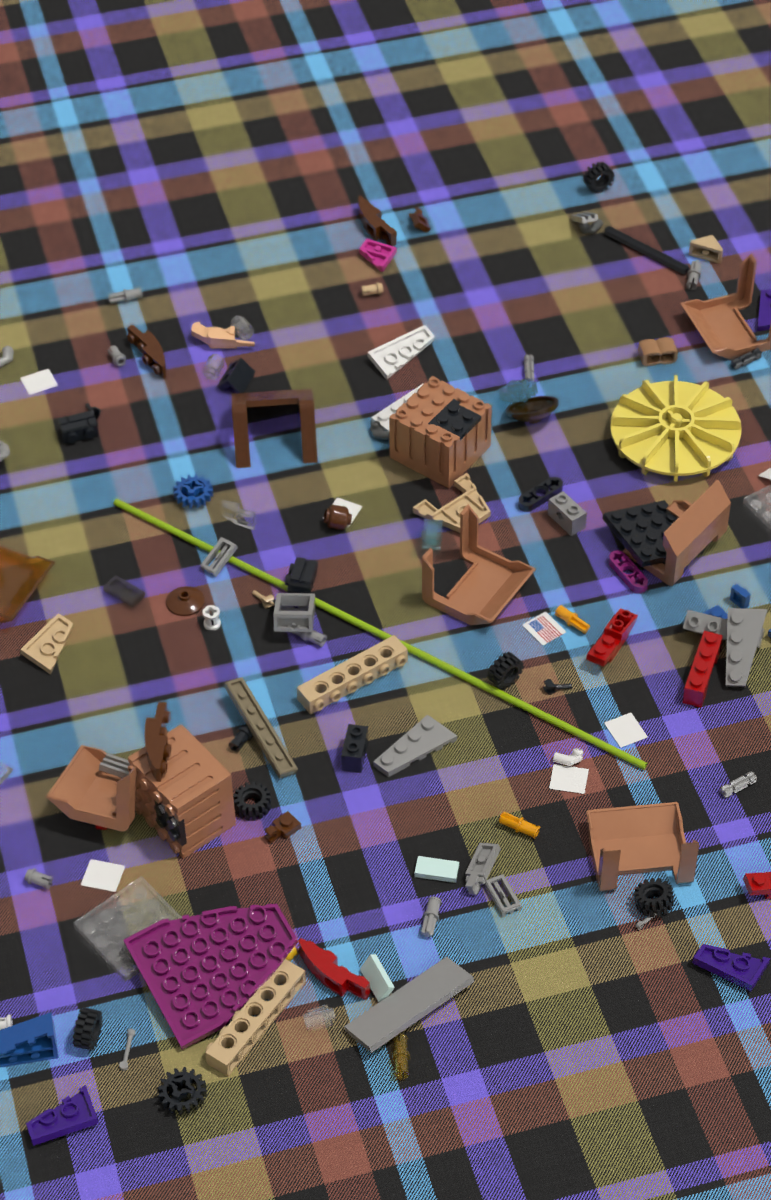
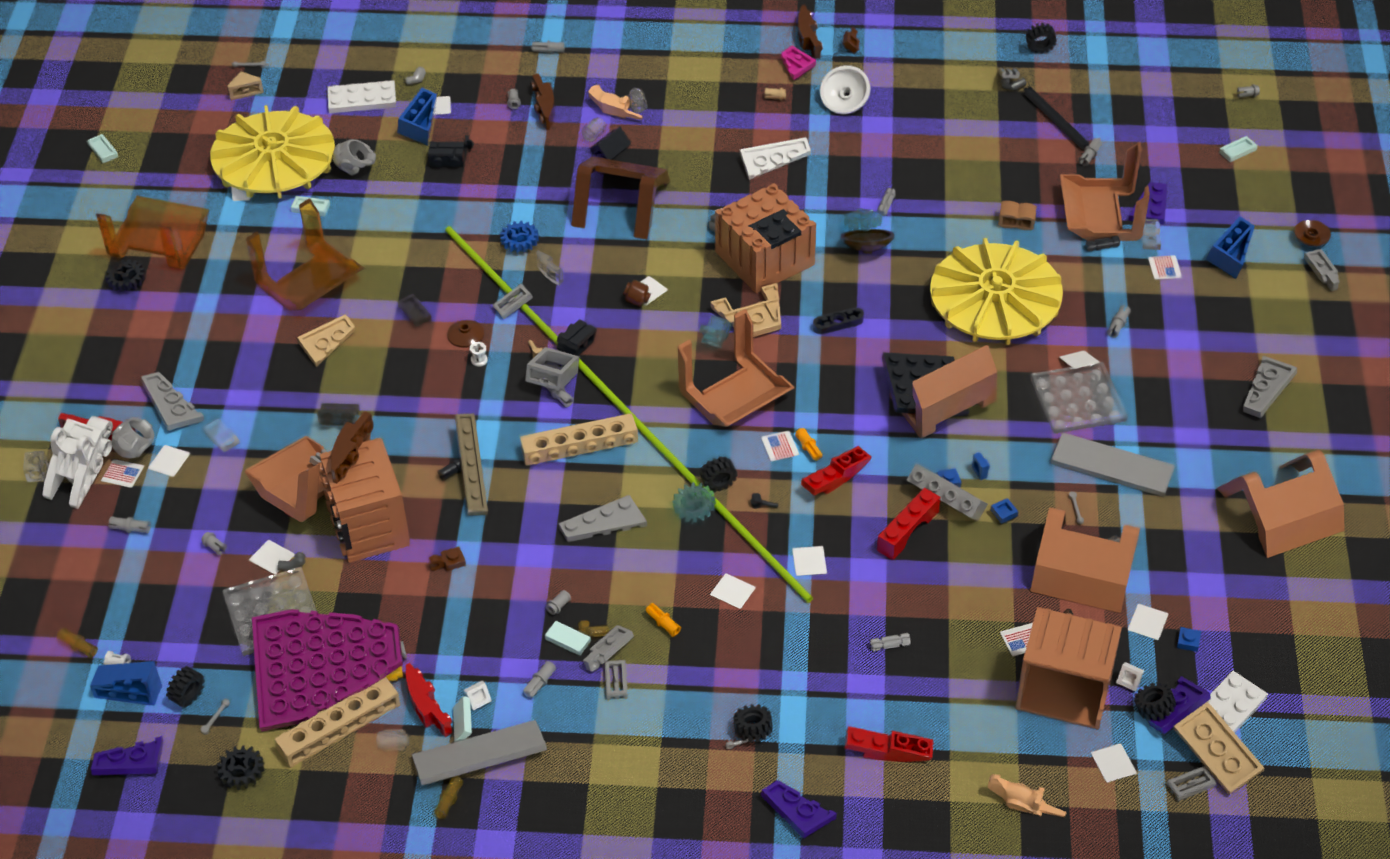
camera: 20 degrees right, 0 degrees up
(33, 398) = (418, 117): none -> blue wedge
(101, 715) = (338, 414): none -> clear smoke bracket
(134, 873) = (296, 562): none -> dark grey arm
(252, 810) = (432, 519): black tyre -> none
(354, 748) = (546, 506): black brick -> none
(381, 948) = (478, 695): none -> white tile
(409, 842) = (554, 606): none -> light grey pin
(440, 259) = (844, 80): none -> white dish
(458, 855) = (593, 631): none -> clear yellow arm
(493, 704) = (694, 502): none -> clear light blue gear
(567, 513) = (852, 344): light grey brick -> none
(569, 760) = (739, 573): white arm -> none
(627, 564) = (883, 421): magenta beam -> none
(640, 842) = (763, 667): nougat piece -> none
(707, 249) = (1114, 129): tan slope -> none
(742, 641) = (954, 508): light grey wing -> none

